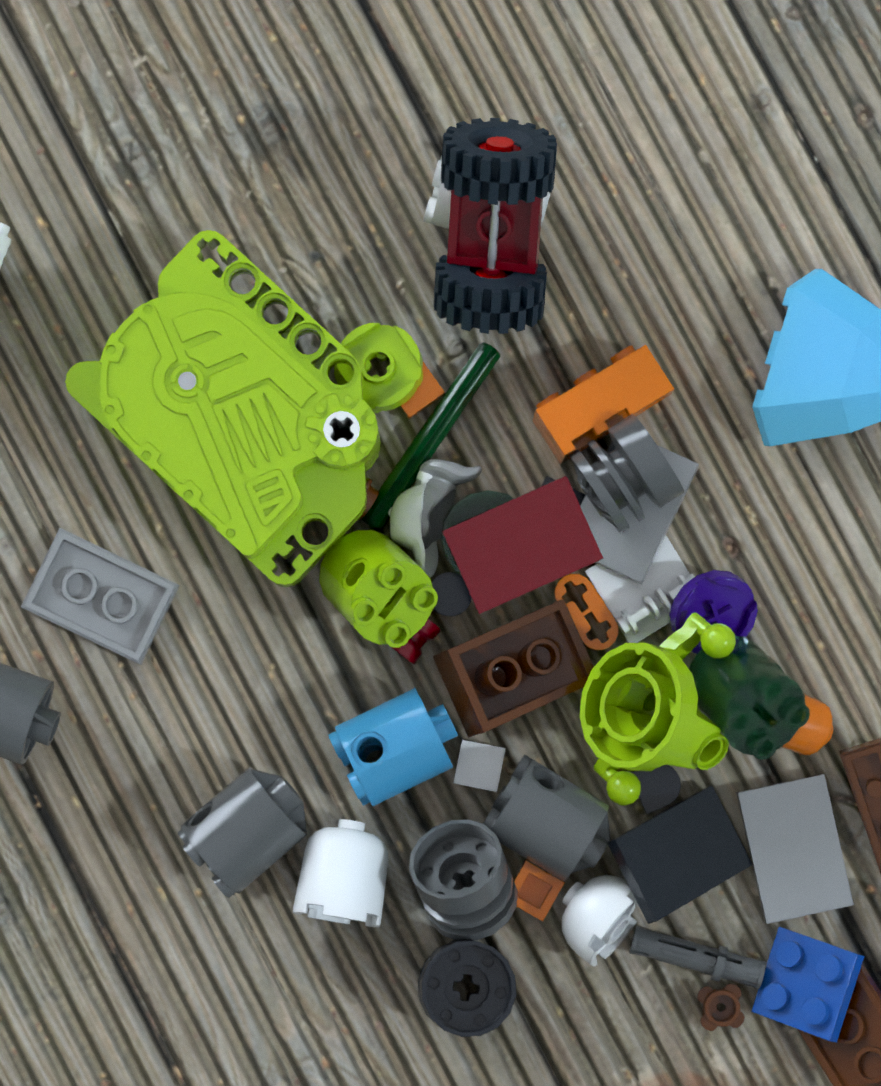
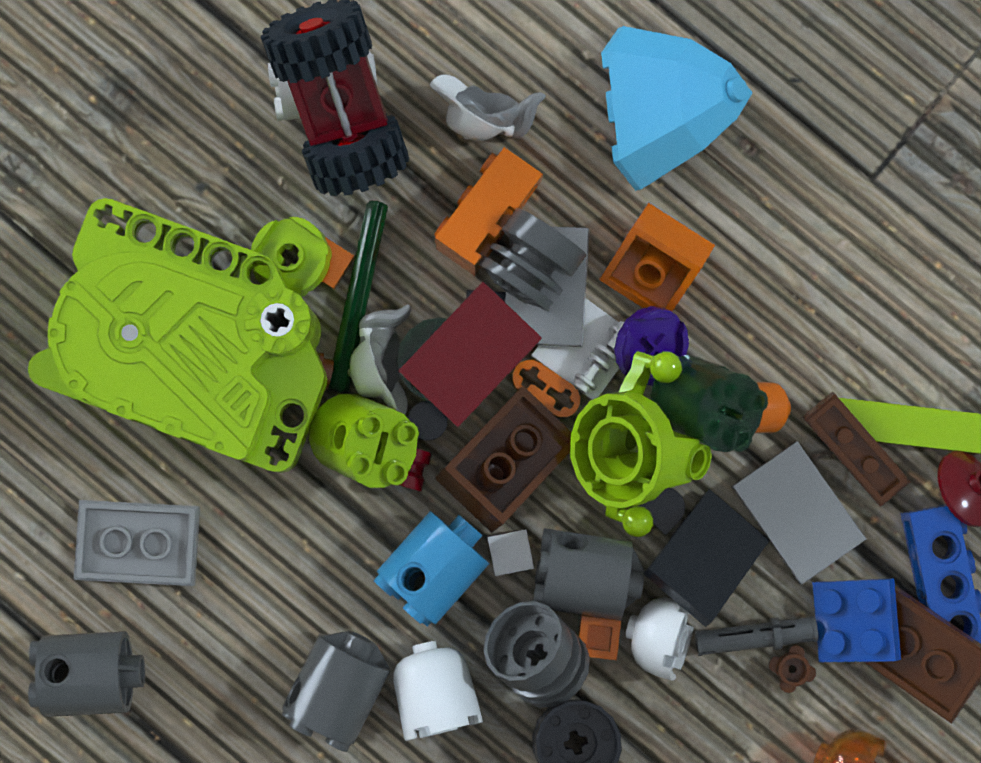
camera: 25 degrees left, 0 degrees up
(640, 302) = (484, 114): none -> hair
(755, 527) = (657, 260): none -> orange slope

